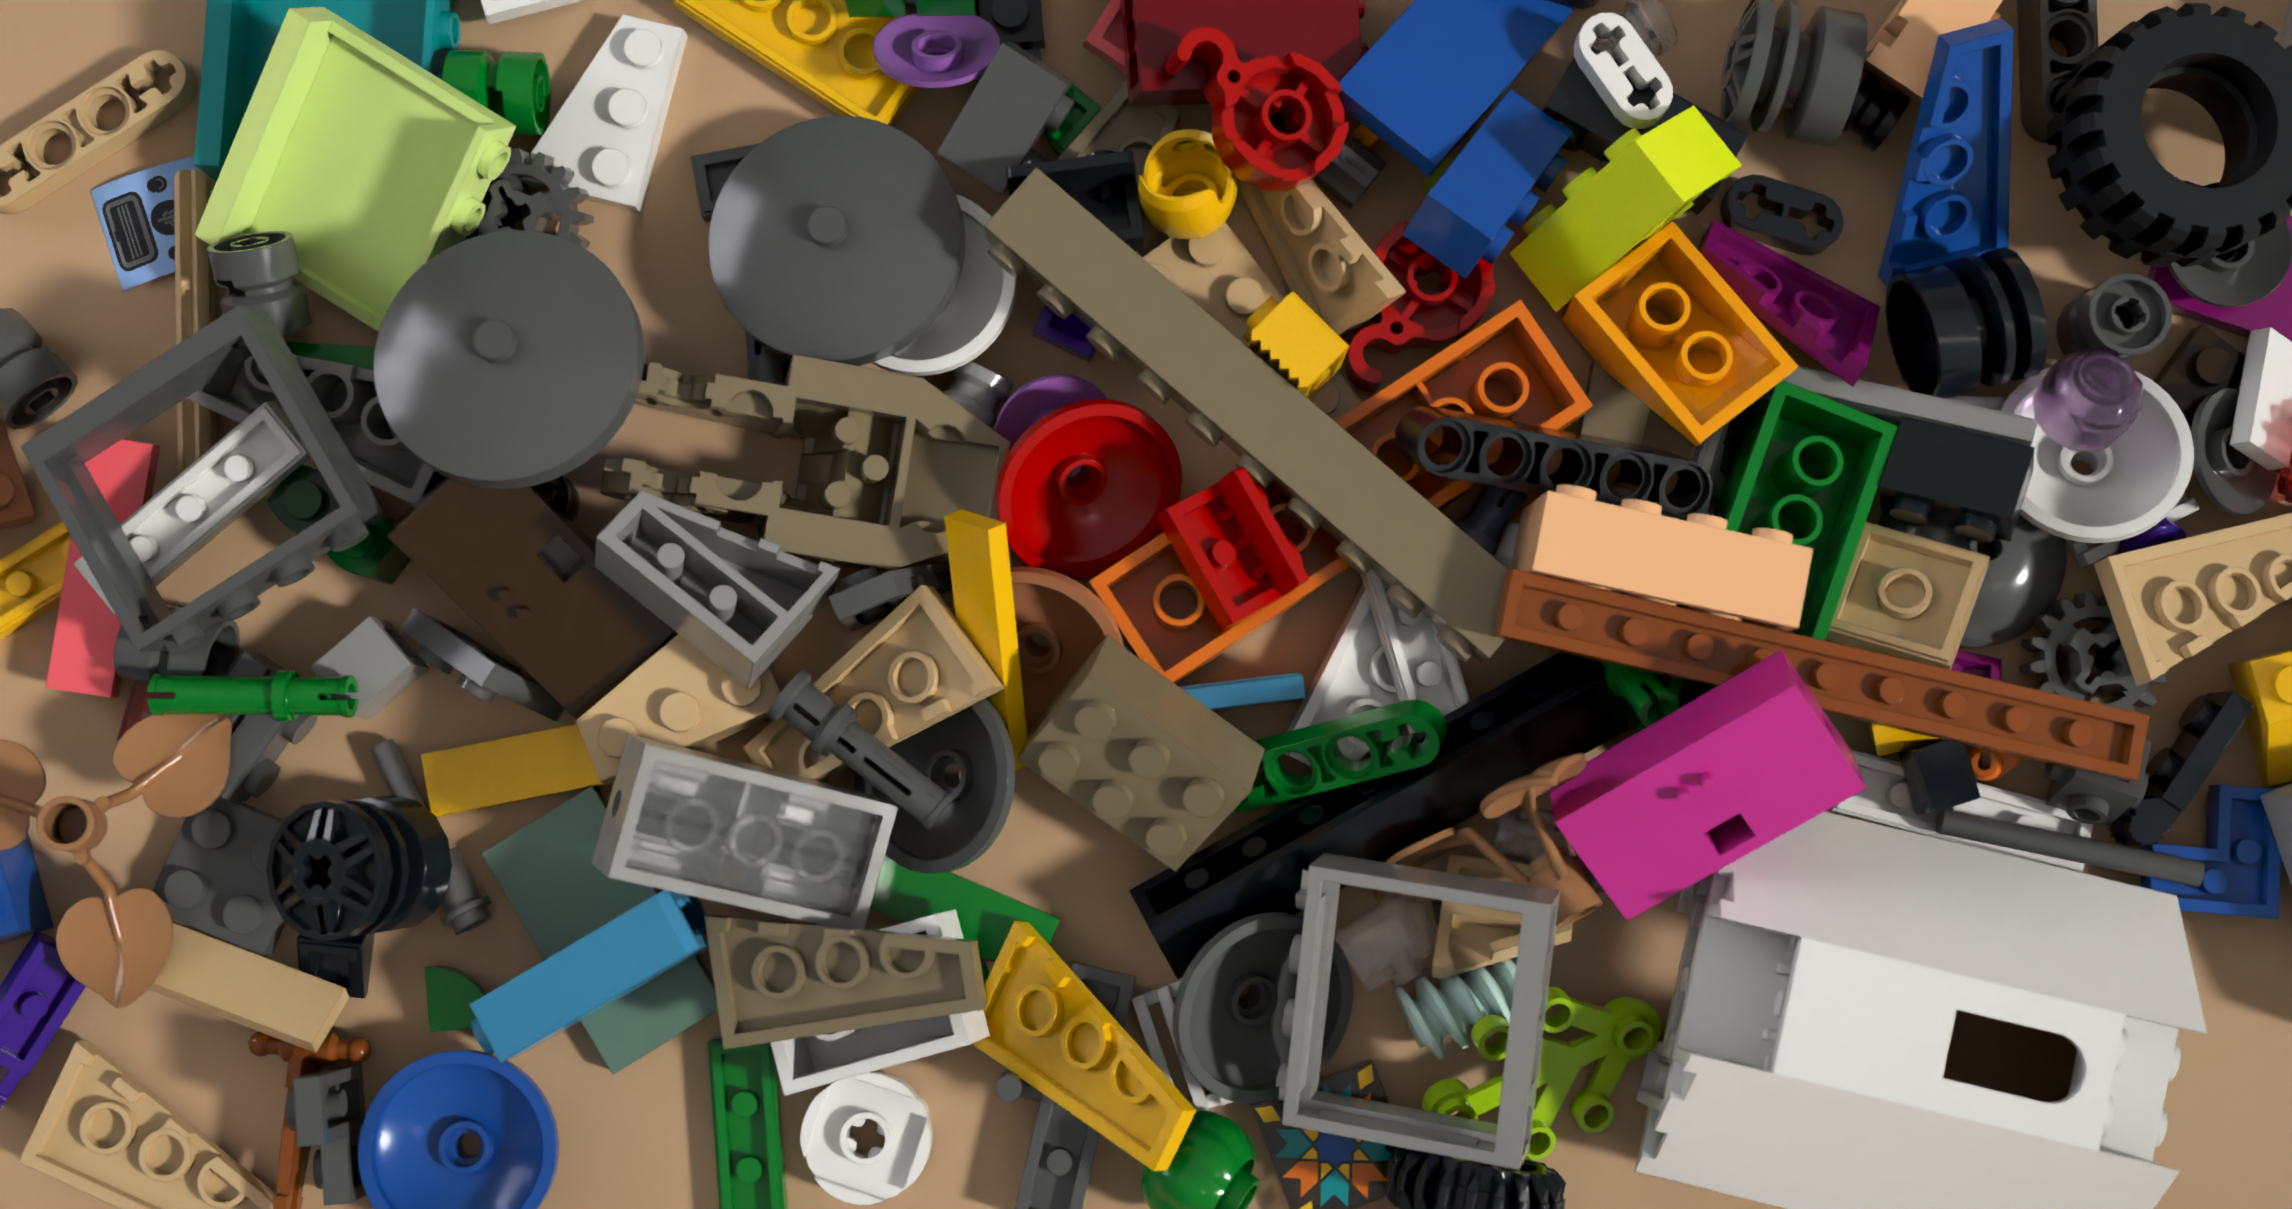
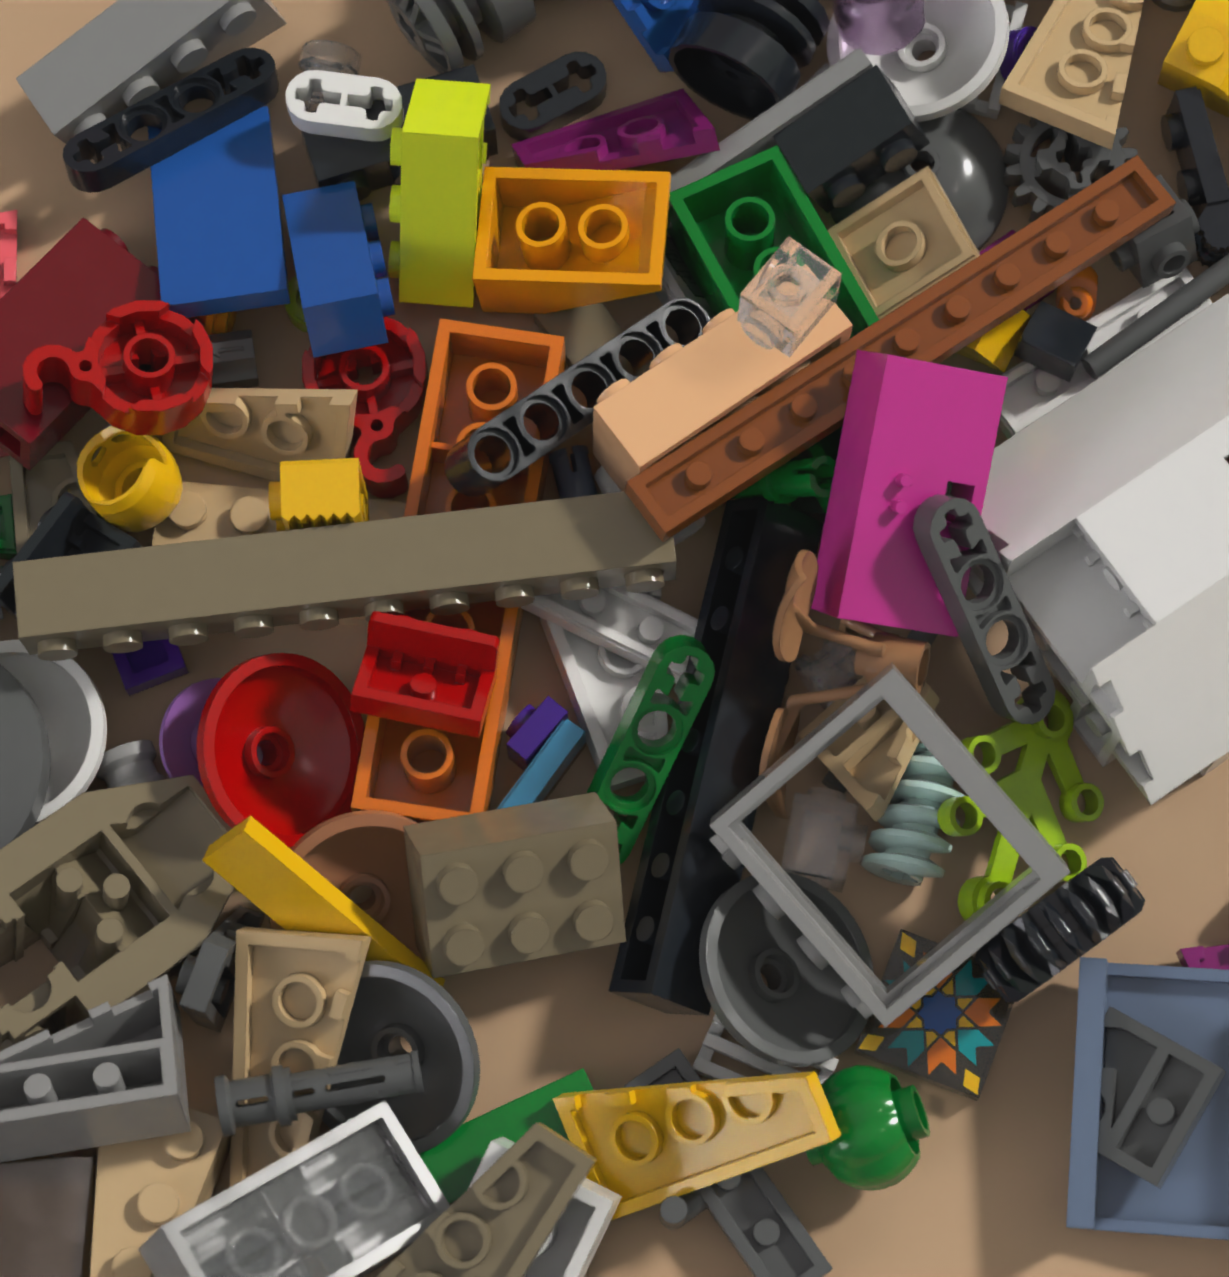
camera: 45 degrees left, 10 degrees down
(1273, 656) = (532, 730): none -> dark purple plate
(1675, 927) = (993, 603): none -> dark grey beam
(1771, 562) = (788, 298): none -> clear brick

